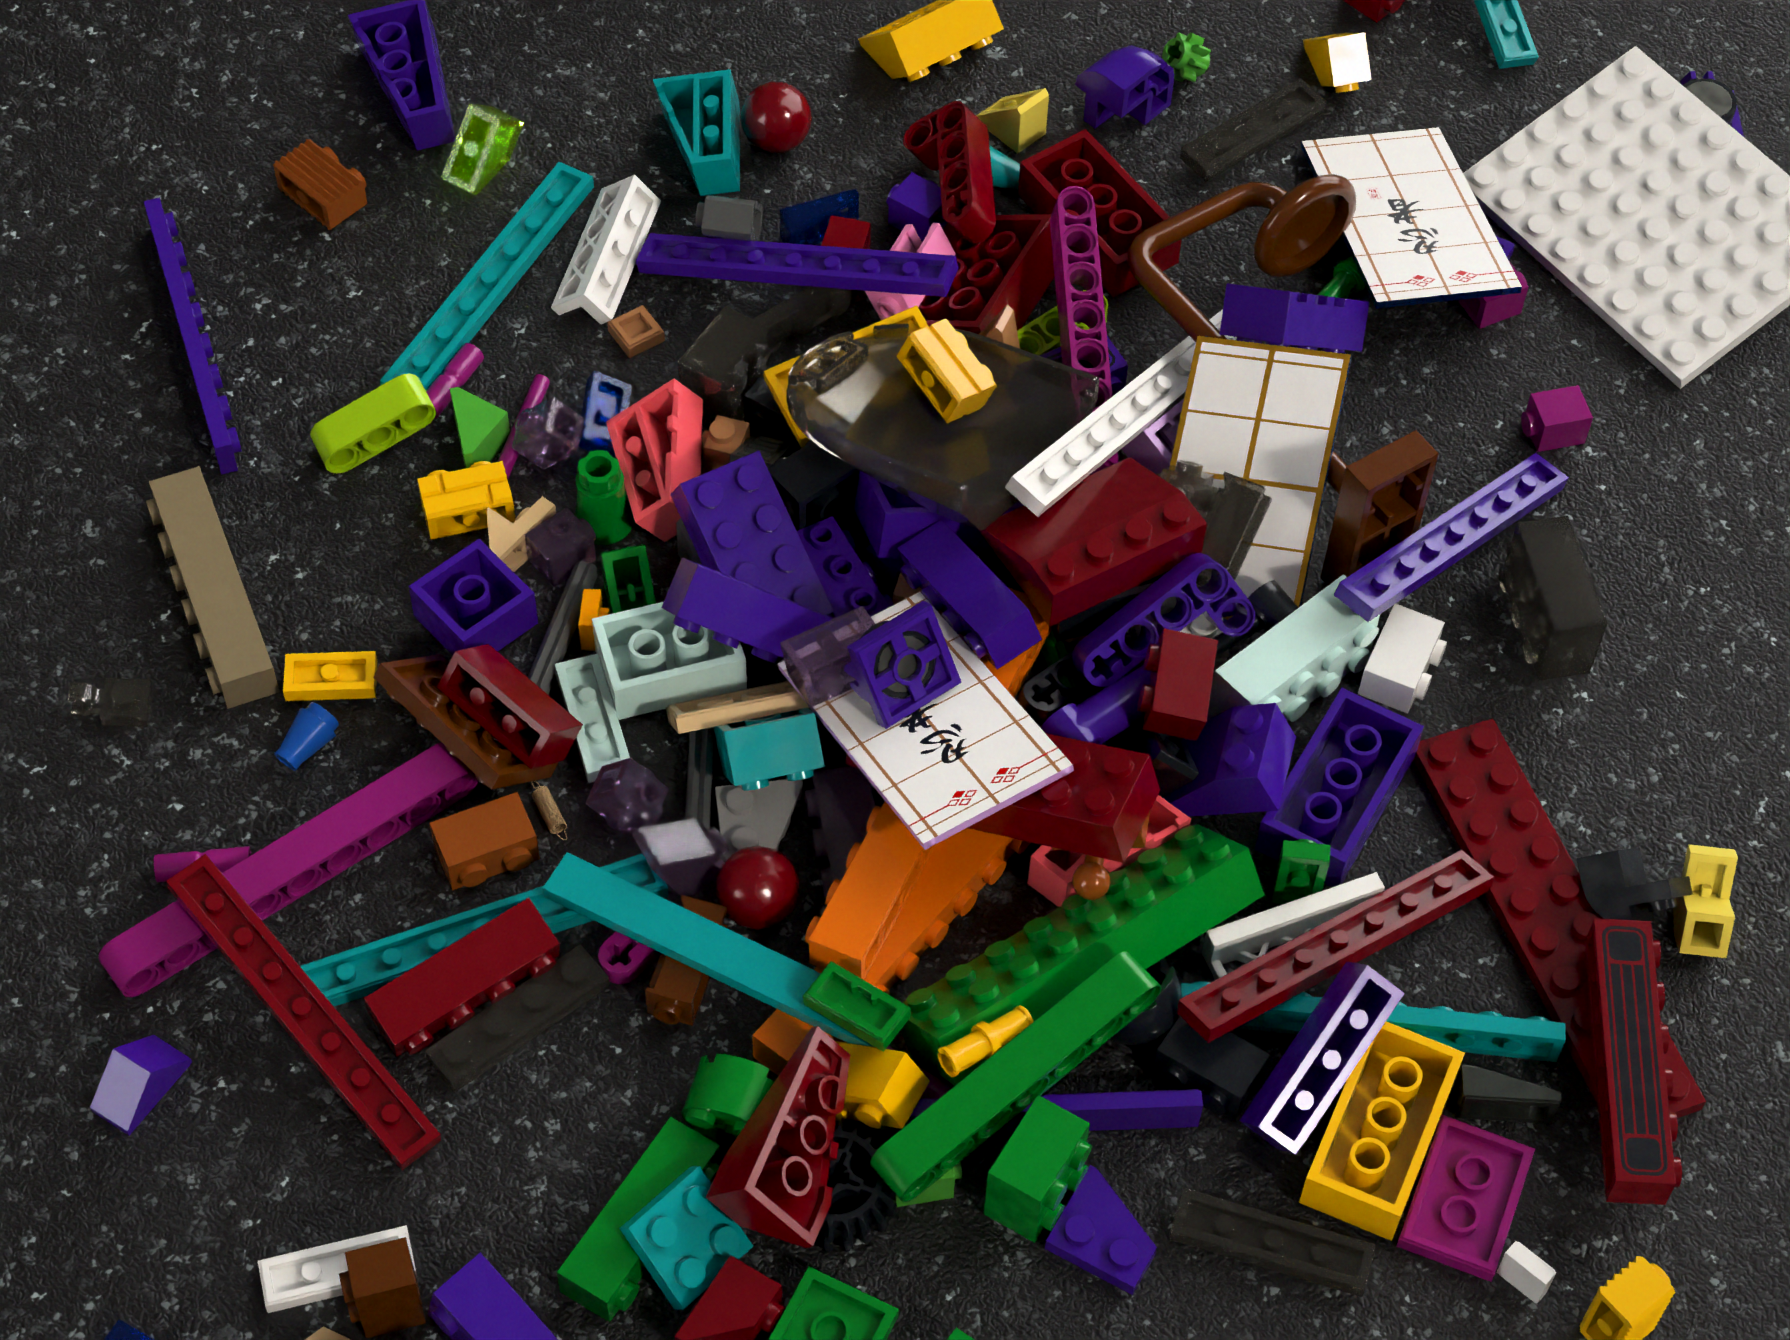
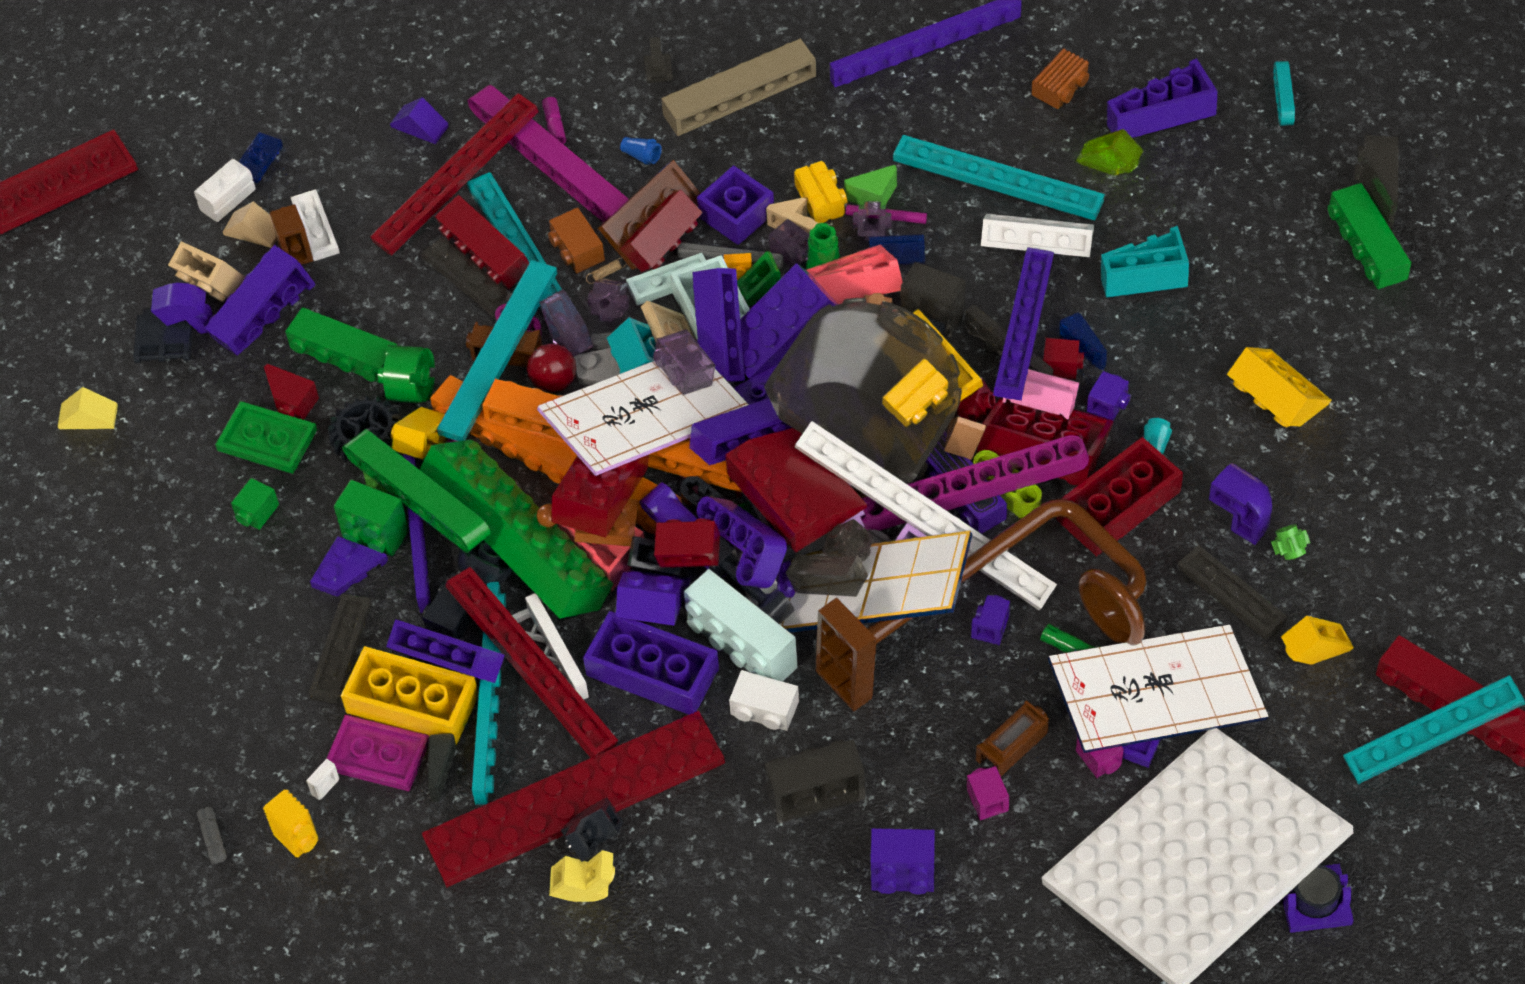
camera: 90 degrees right, 0 degrees up
(330, 676) = (684, 150): yellow plate -> none
(372, 423) = (866, 135): lime beam -> none
(454, 375) = (919, 173): magenta piece -> none
(636, 331) = (975, 260): medium nougat tile -> none
(684, 1238) = (327, 362): teal plate -> none
(730, 218) = (1063, 287): dark grey brick -> none
(776, 117) = (1166, 301): dark red piece -> none
(782, 1157) = (366, 391): dark red wedge -> none
(857, 1006) = (457, 409): green plate -> none
(904, 661) = (665, 380): dark purple piece -> none
(958, 147) = (1130, 407): dark red beam -> none
(983, 1041) = (432, 467): yellow pin -> none
(1018, 118) = (1206, 445): light yellow slope -> none
(1293, 319) = (1015, 603): dark purple wedge -> none
(1300, 870) = (580, 637): green plate -> none
(1450, 537) = (850, 711): dark purple plate -> none
(1472, 382) = (1014, 737): none -> reddish brown window
(1631, 1063) = (458, 824): brick -> none
(1679, 511) = (902, 860): none -> dark purple brick

